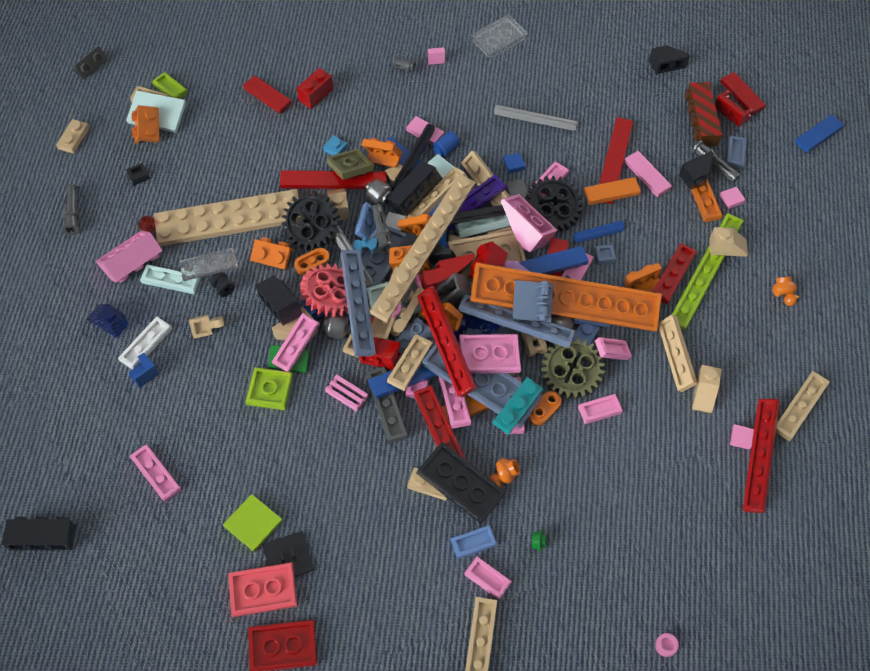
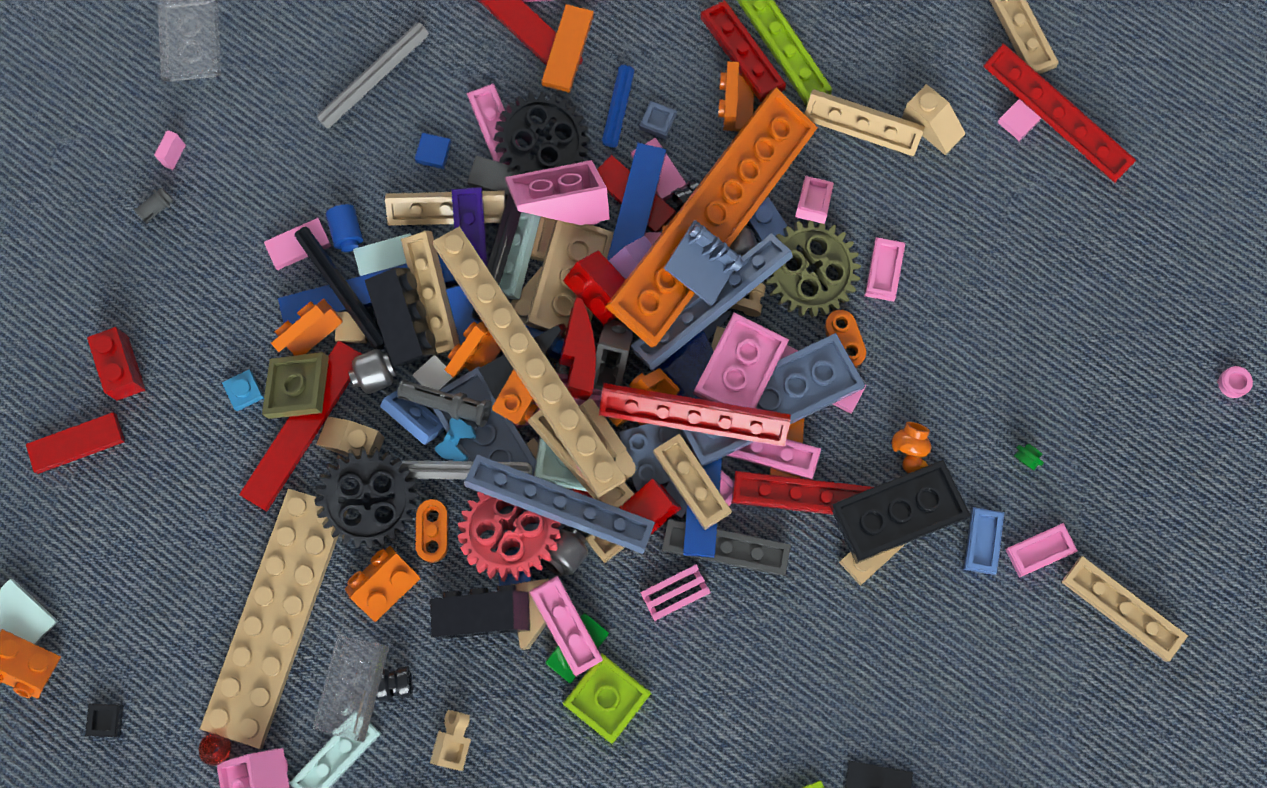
camera: 55 degrees left, 15 degrees up
(517, 406) = (837, 374): teal plate -> none

